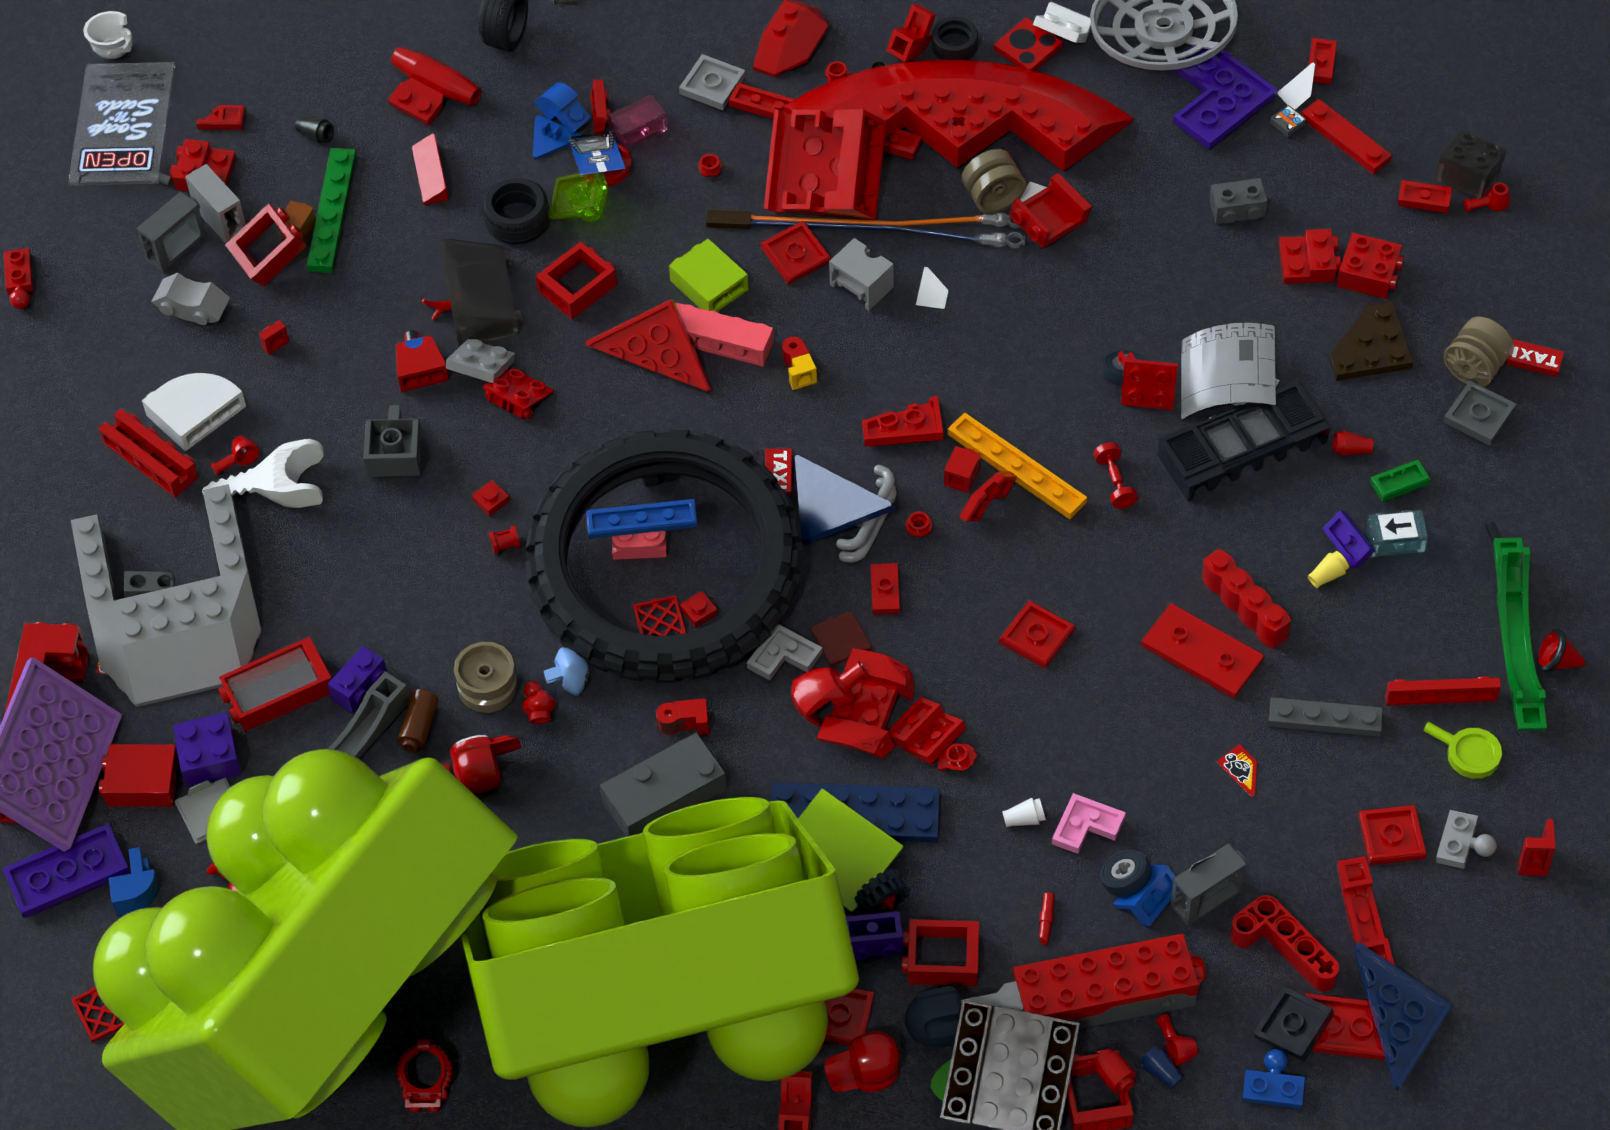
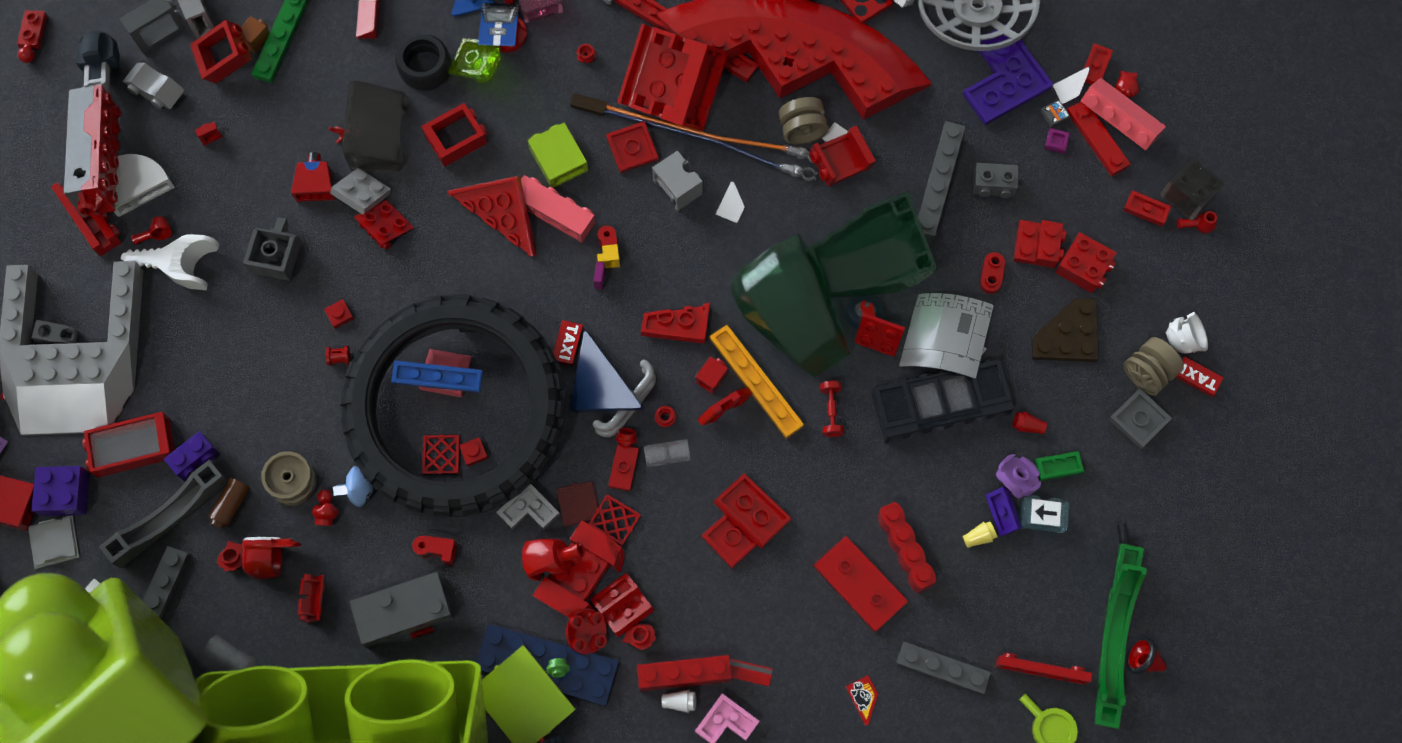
camera: 10 degrees right, 15 degrees up
(138, 348) = (93, 129): none -> piece
(551, 803) = (311, 608): none -> red hinge
(796, 392) = (599, 275): none -> magenta tile
(870, 802) = (558, 667): none -> bright green plate
(879, 554) = (626, 436): none -> red plate
(892, 762) = (586, 631): none -> red dish
(893, 628) = (621, 506): none -> red window
(932, 560) = (667, 453): none -> clear pin
(1021, 781) = (684, 673): none -> red brick
(1037, 371) = (791, 305): none -> clear green windscreen
(1052, 599) = (752, 510): none -> red tile
(1098, 771) = (750, 672): none -> red sticker
(1115, 297) = (876, 251): none -> clear green windscreen
(1172, 217) = (940, 178): none -> dark grey brick
(1263, 294) = (992, 271): none -> red plate
(1298, 149) = (1057, 141): none -> magenta tile
(1355, 497) = (1009, 471): none -> medium lavender plate
(1364, 74) = (1128, 84): none -> red animal
(1367, 103) = (1123, 113): none -> coral brick
(1509, 312) = (1187, 334): none -> white helmet

